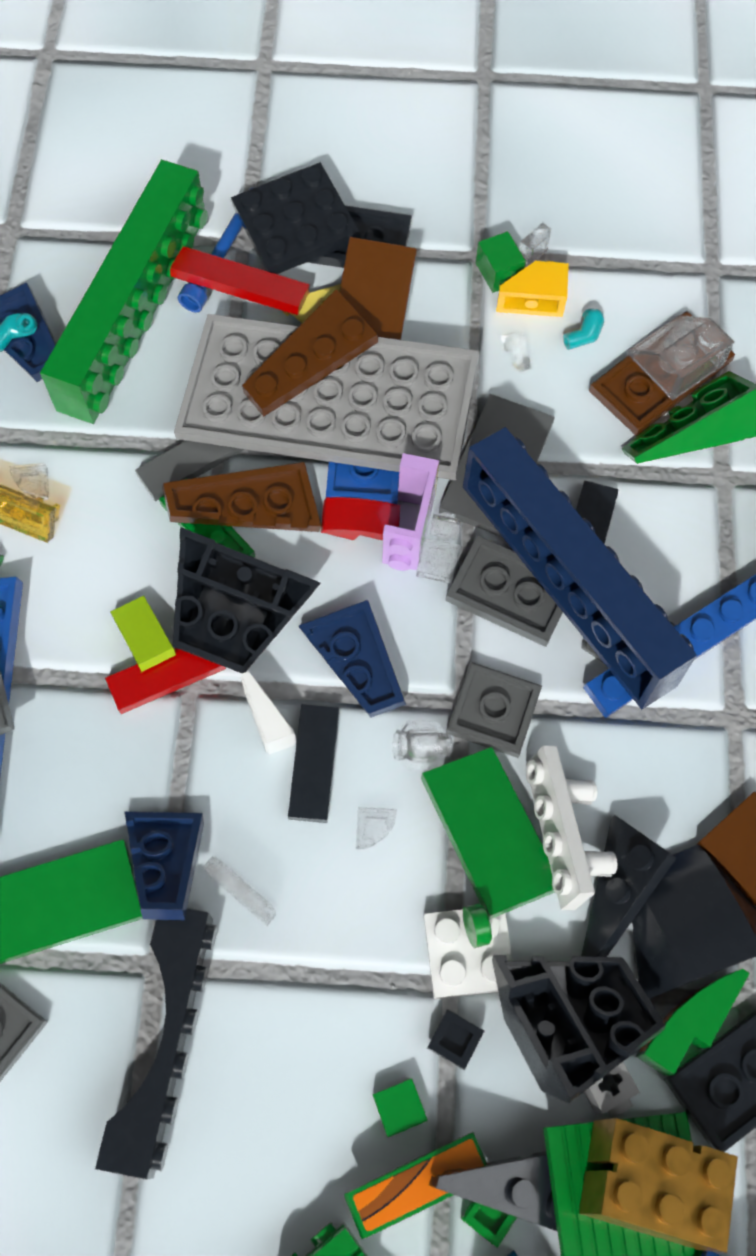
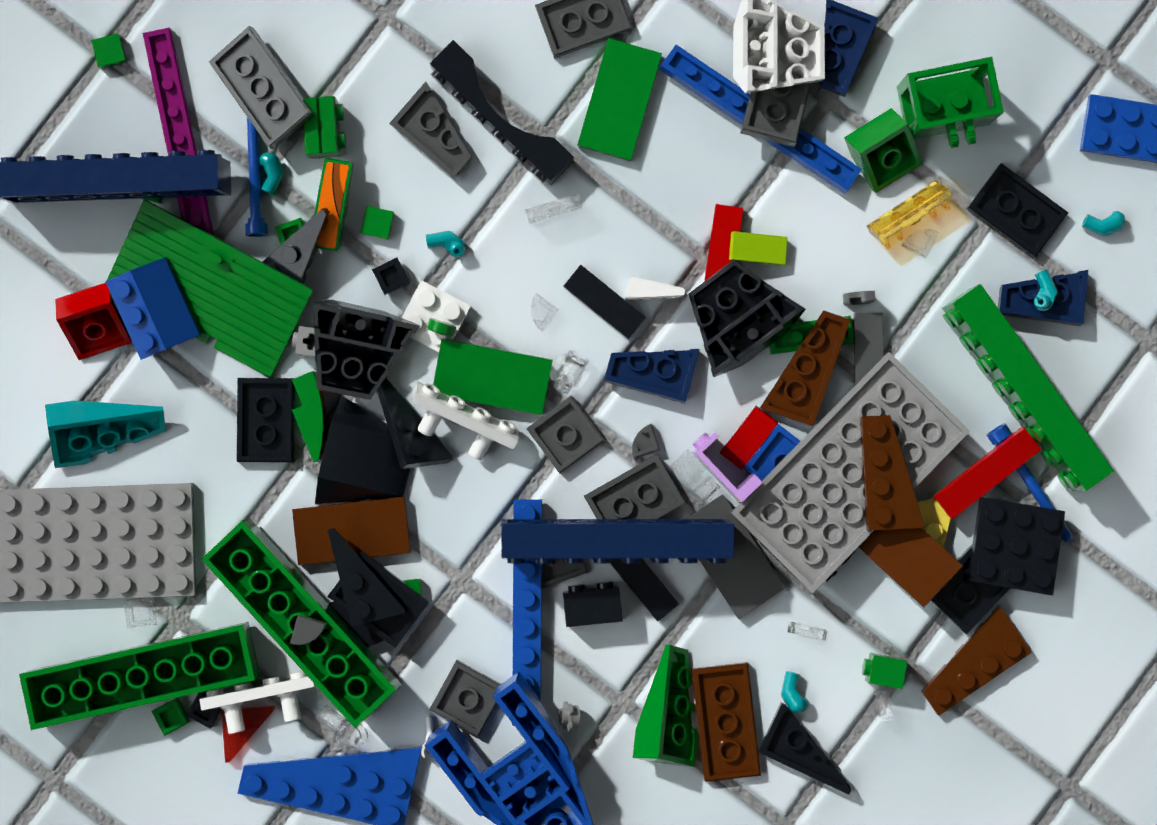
camera: 125 degrees right, 20 degrees up
(131, 500) = (859, 298): none -> dark grey tile
(164, 860) = (599, 175): dark blue wing -> none
(237, 1120) = (430, 131): none -> dark grey wing
(362, 997) = (448, 240): none -> teal arm
(434, 199) = (982, 658): none -> reddish brown wing
(441, 620) = (645, 442): none -> dark grey tile
(536, 290) = (845, 680): yellow slope -> none
(637, 296) = (794, 747): none -> black wing
(656, 560) = (592, 605): none -> black brick
(660, 1185) = (245, 329): pearl gold piece -> none
(682, 353) = (727, 737): clear slope -> none

